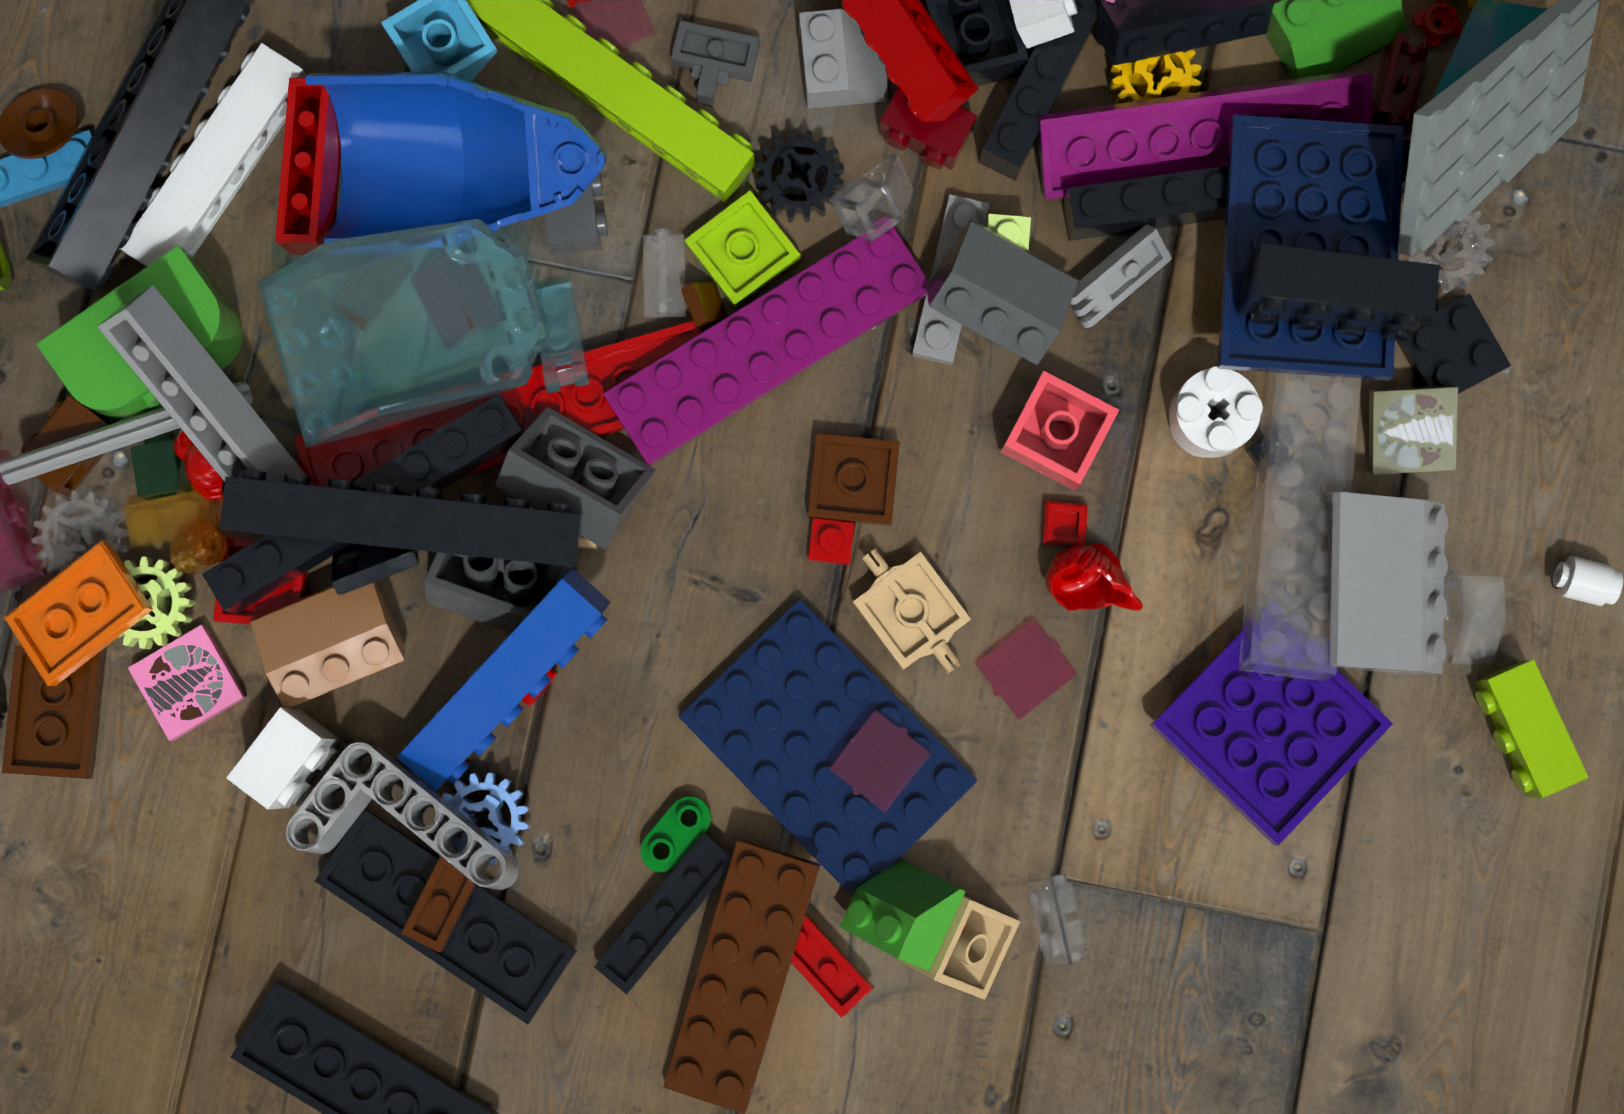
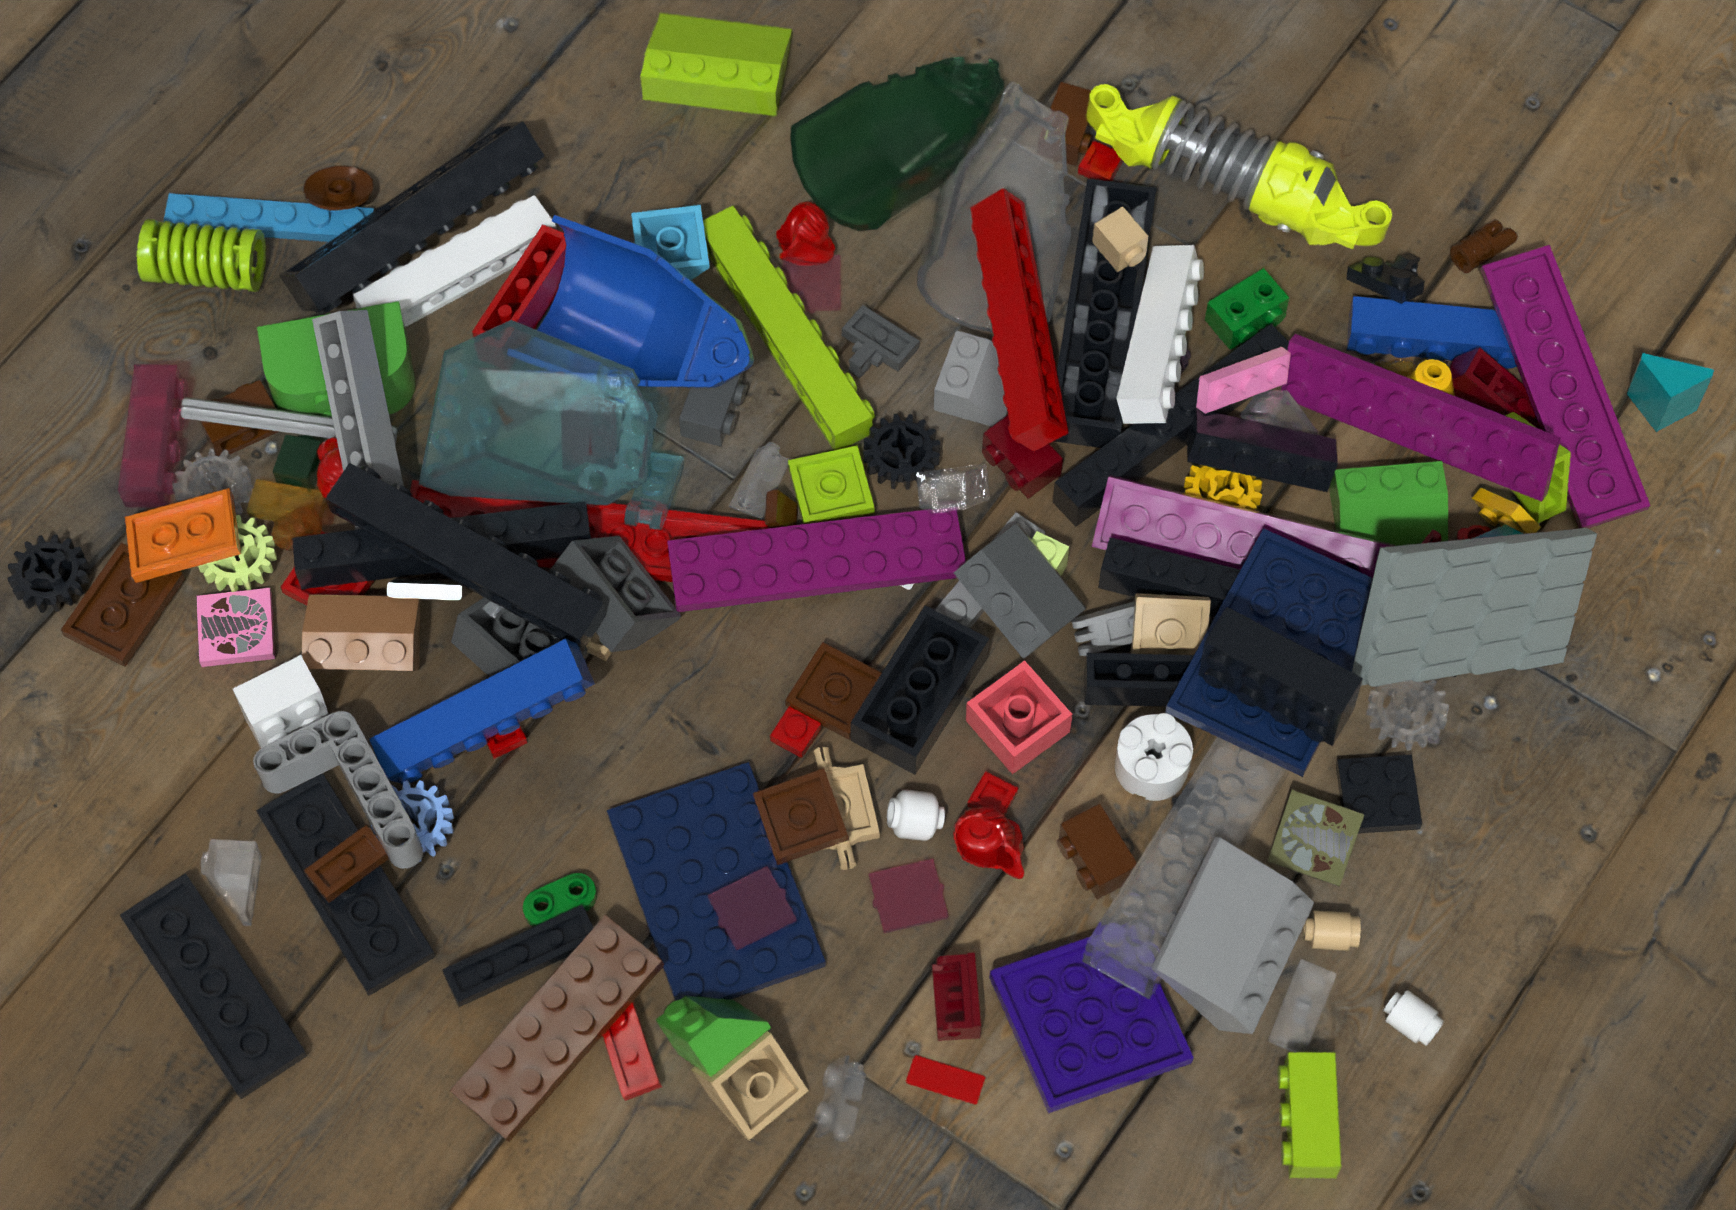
camera: 25 degrees right, 20 degrees down
(327, 962) = (233, 874): none -> clear slope
(886, 642) = (800, 816): none -> reddish brown plate
(944, 444) = (919, 689): none -> black brick
(998, 583) = (915, 815): none -> white head
(1127, 761) = (956, 997): none -> dark red hinge
(1149, 847) = (945, 1079): none -> red sticker
(1162, 334) = (1132, 678): none -> black brick
(1173, 267) = (1169, 624): none -> tan plate
(1200, 542) = (1096, 851): none -> reddish brown brick
(1473, 522) = (1332, 930): none -> tan brick

